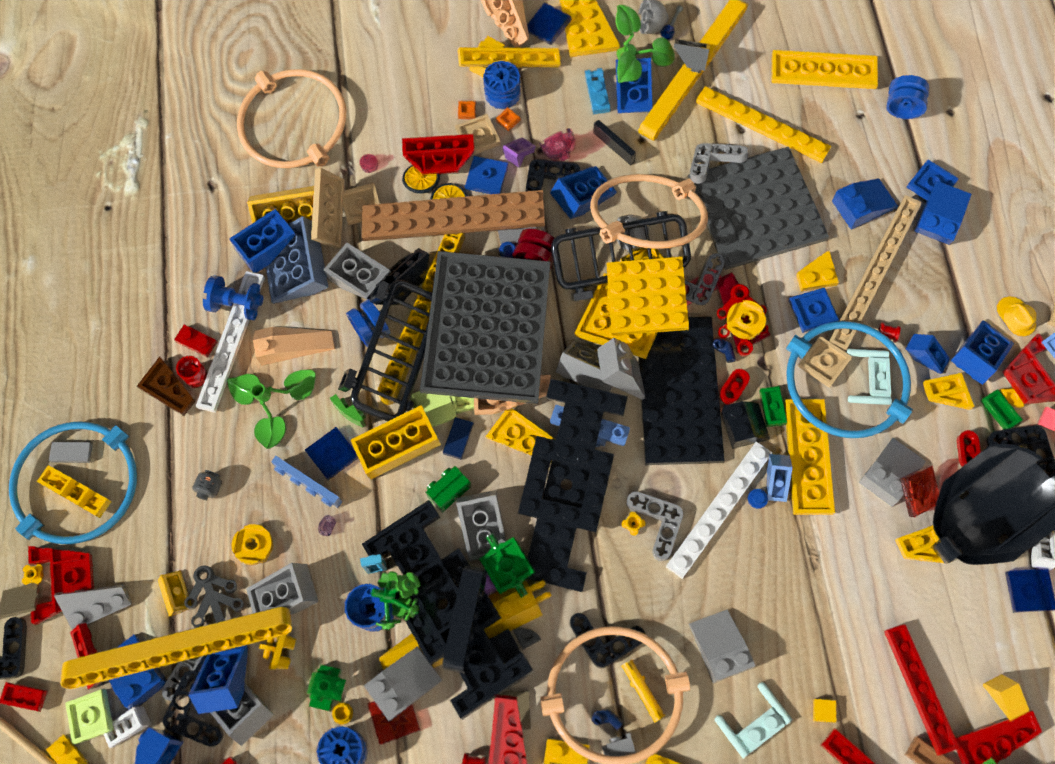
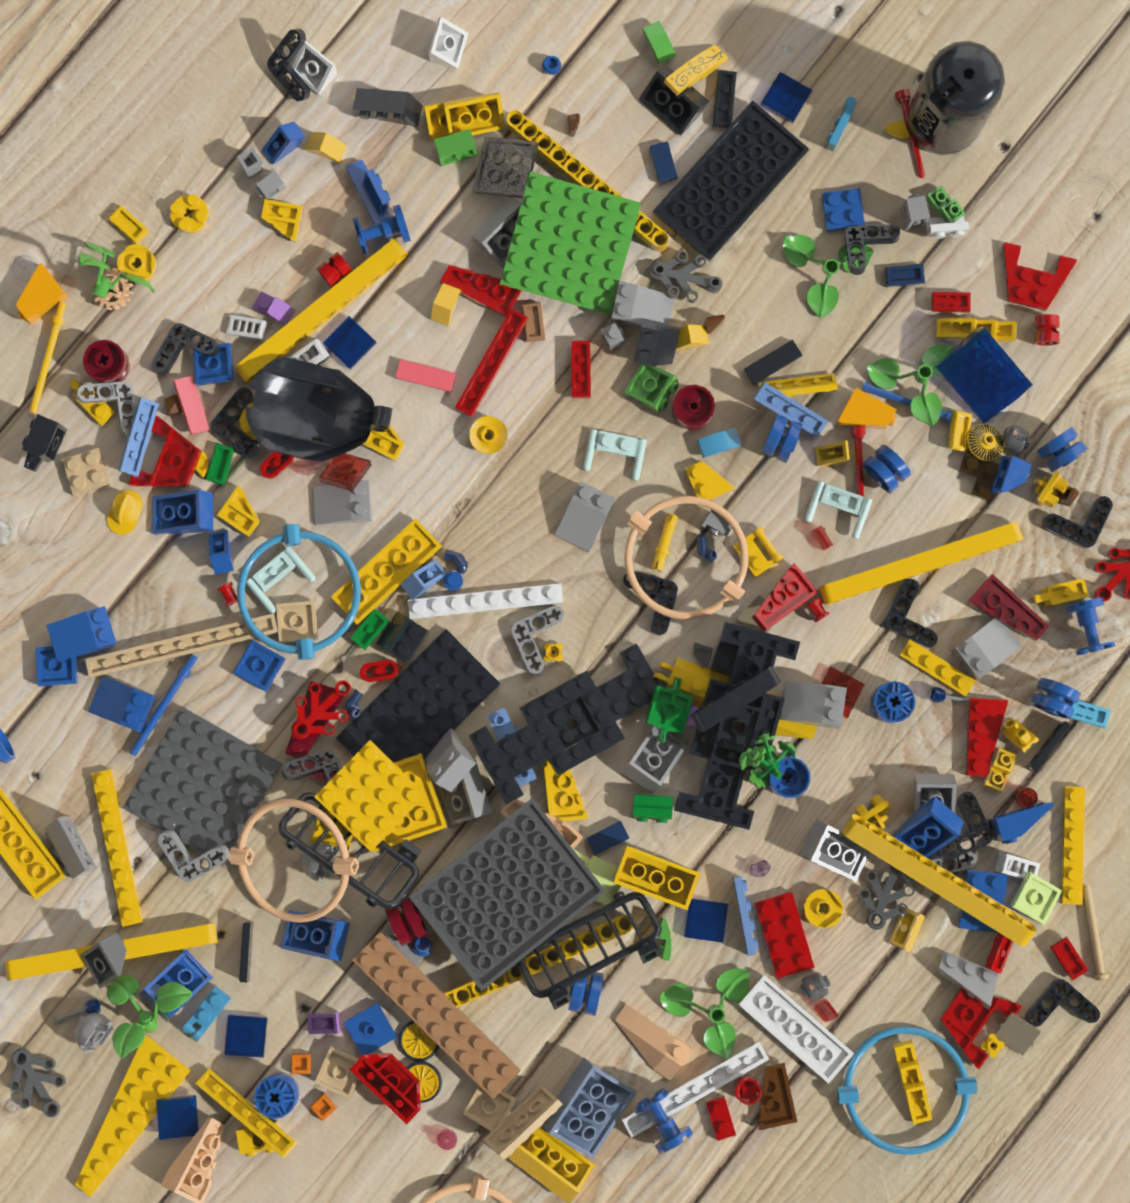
camera: 135 degrees left, 15 degrees up
(70, 452) = (889, 1118): light grey tile -> none
(183, 478) = (826, 1010): none -> clear red slope
(195, 445) = (796, 1029): none -> white plate
(262, 240) = (595, 1148): blue slope -> none
(265, 499) = (784, 935): none -> red plate
(325, 687) = (865, 754): green tile -> none
(342, 713) = (869, 728): yellow plate -> none
(355, 271) = (553, 1043): light grey slope -> none
(373, 564) = (755, 805): medium azure plate -> none
(411, 269) = (519, 1008): black wedge -> none
(540, 175) = (330, 985): black beam -> none
(559, 102) = (246, 1036): none -> clear blue tile
(559, 145) = (291, 992): clear pink cylinder -> none
(743, 309) = (315, 714): yellow plate -> none
(771, 517) = (459, 560): none -> dark blue arm
(790, 95) = (69, 847): none -> light grey slope
(818, 274) = (222, 688): yellow wing -> none
(824, 711) = (564, 413): yellow tile -> none
(852, 257) = (184, 672): none -> blue bar
(865, 623) = (486, 425): none -> yellow dish
(952, 626) = (425, 375): none -> coral tile

